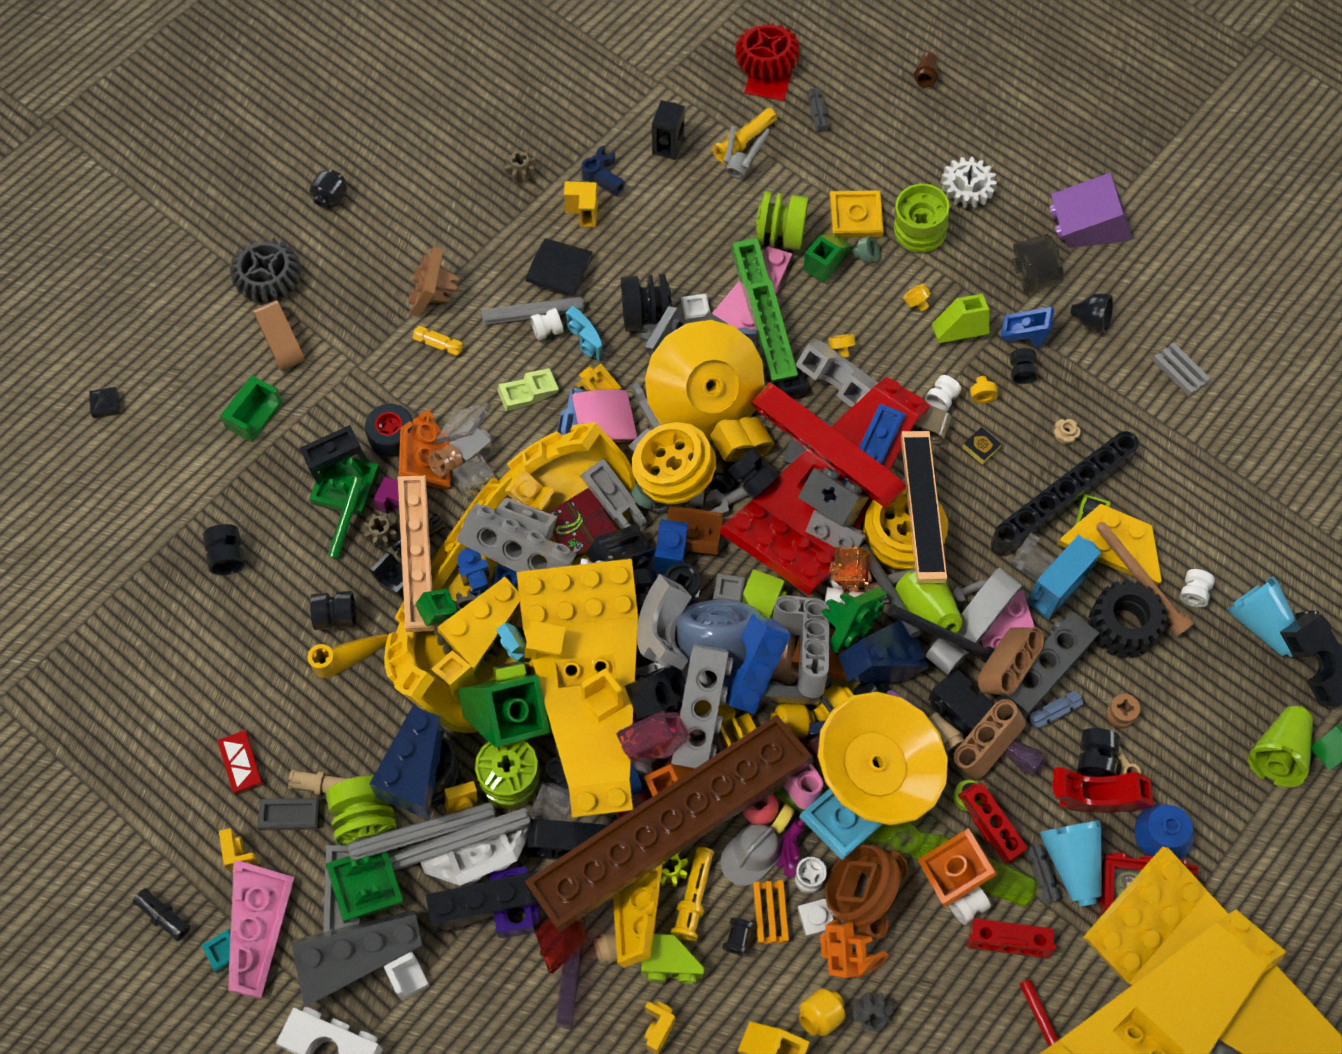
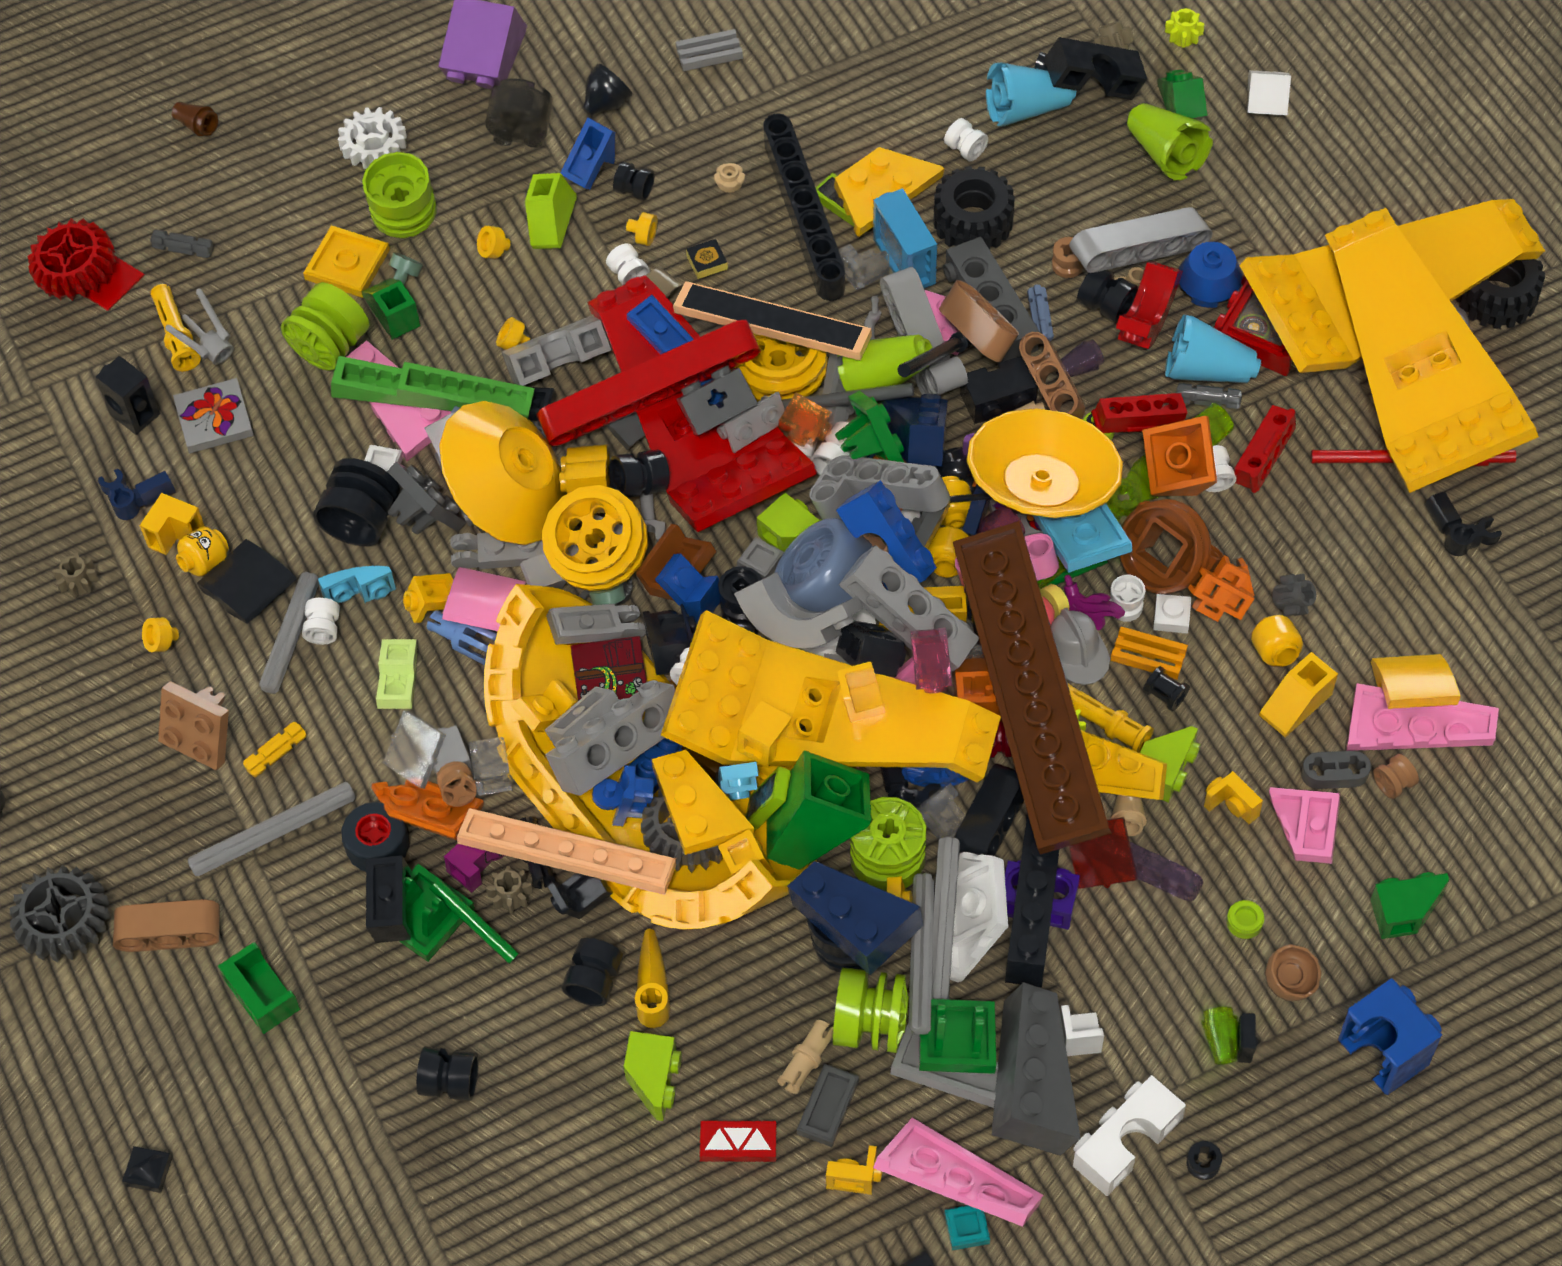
camera: 65 degrees left, 5 degrees down
(270, 680) = (649, 1070): none -> lime slope
(377, 366) = (271, 829): none -> light grey axle
(436, 606) = (654, 845): green slope -> none
(495, 234) = (158, 634): none -> yellow tile
(570, 229) = (201, 551): none -> yellow head
(686, 190) = (213, 415): none -> light grey tile
(1162, 760) = (1140, 239): none -> light grey beam
(1177, 620) = (999, 164): medium nougat piece -> none

